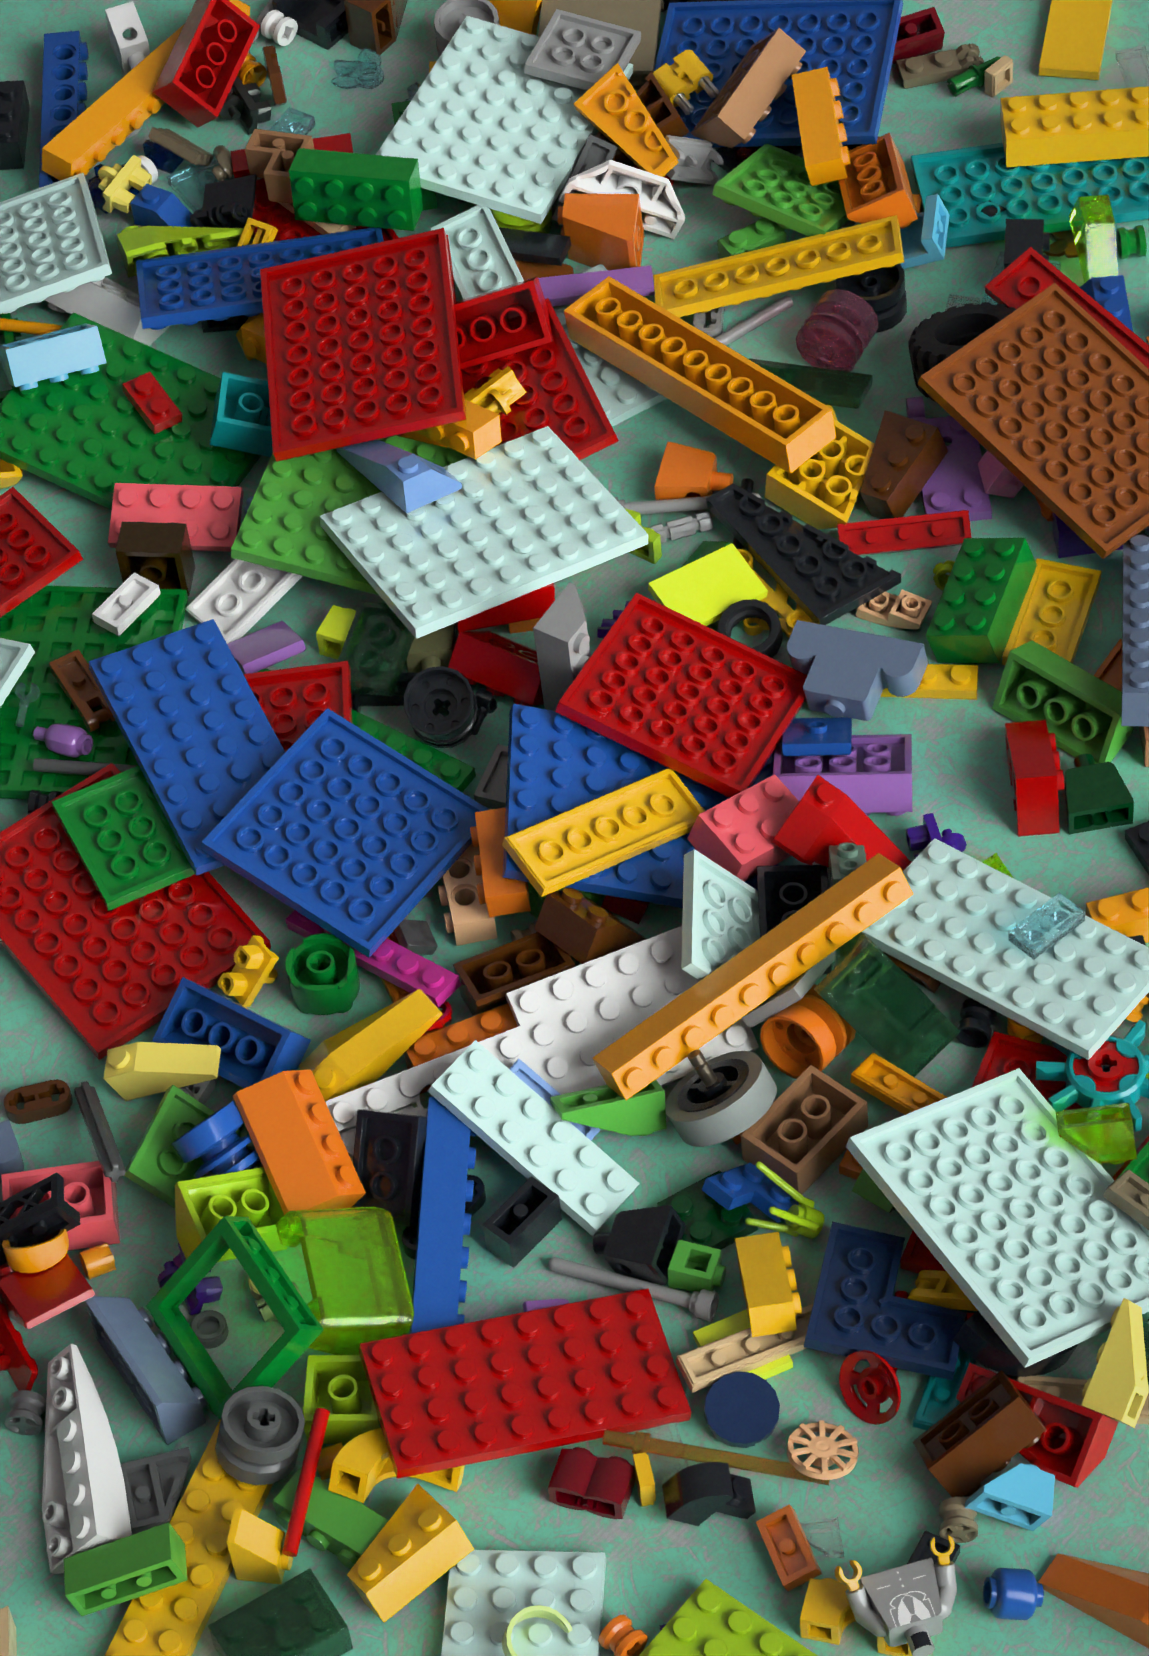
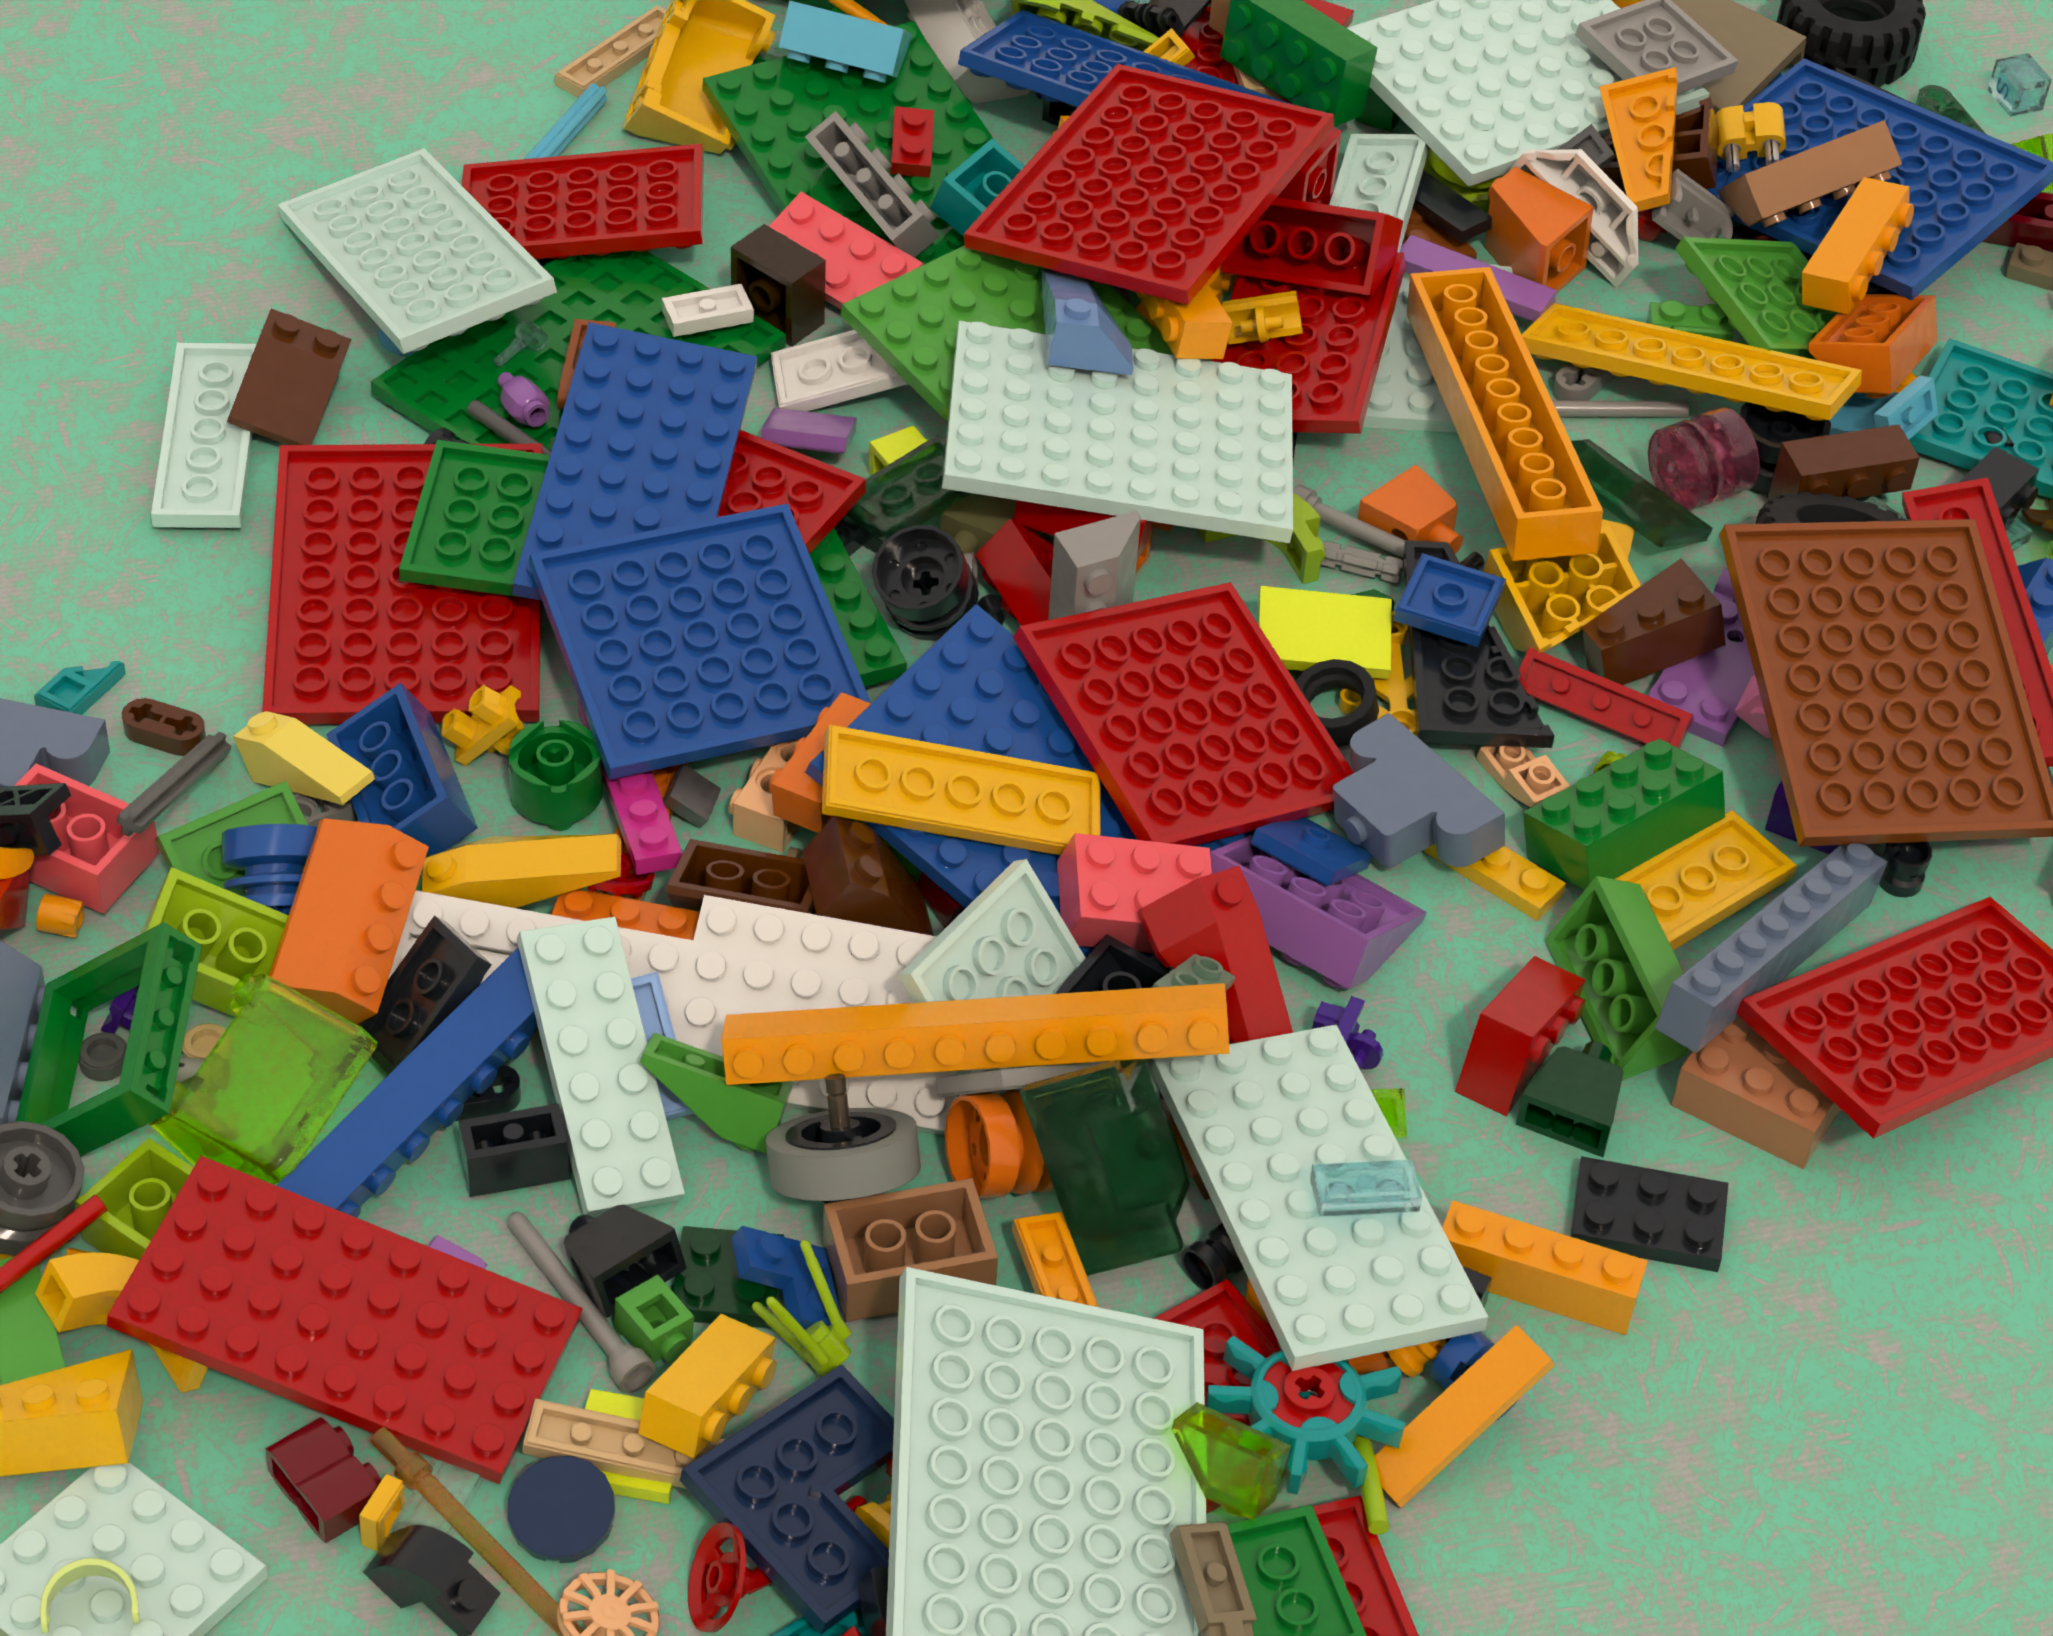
camera: 25 degrees right, 5 degrees down
(163, 451) = (872, 186): none -> light grey brick
(770, 522) = (1449, 599): none -> blue plate
(928, 288) = (1846, 464): none -> reddish brown slope

